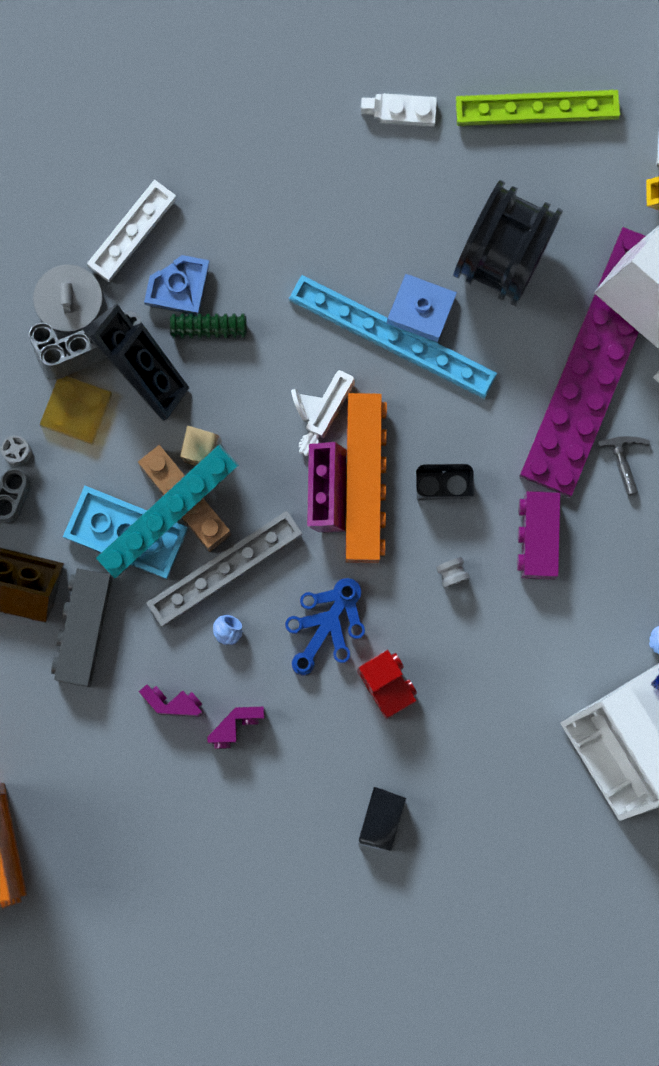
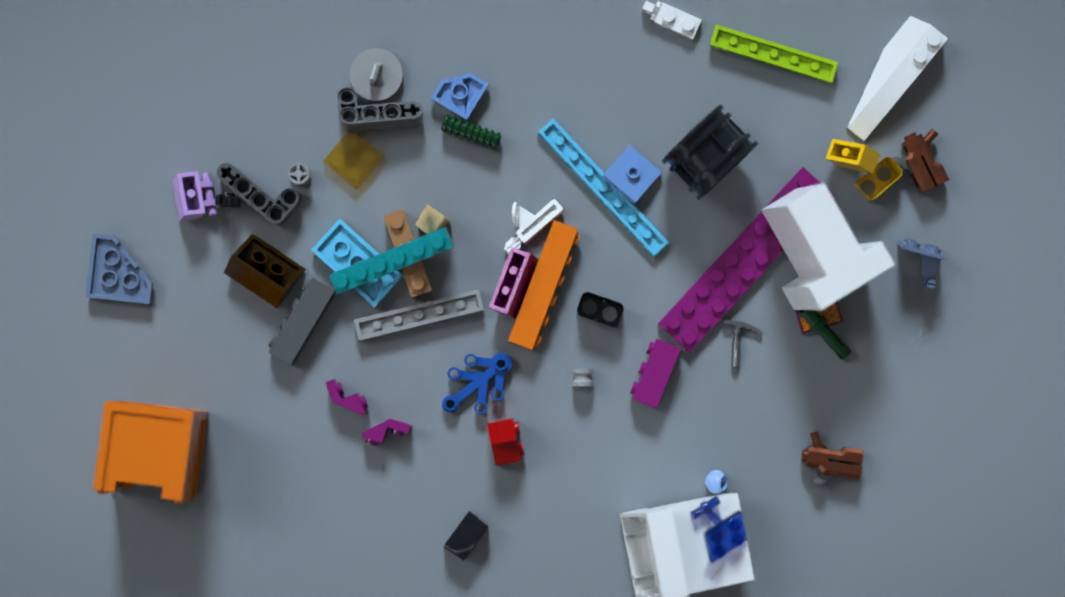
camera: 25 degrees right, 5 degrees up
(131, 231) = (440, 41): white plate -> none
(138, 360) = (410, 141): black slope -> none
(227, 630) = (405, 360): light blue piece -> none

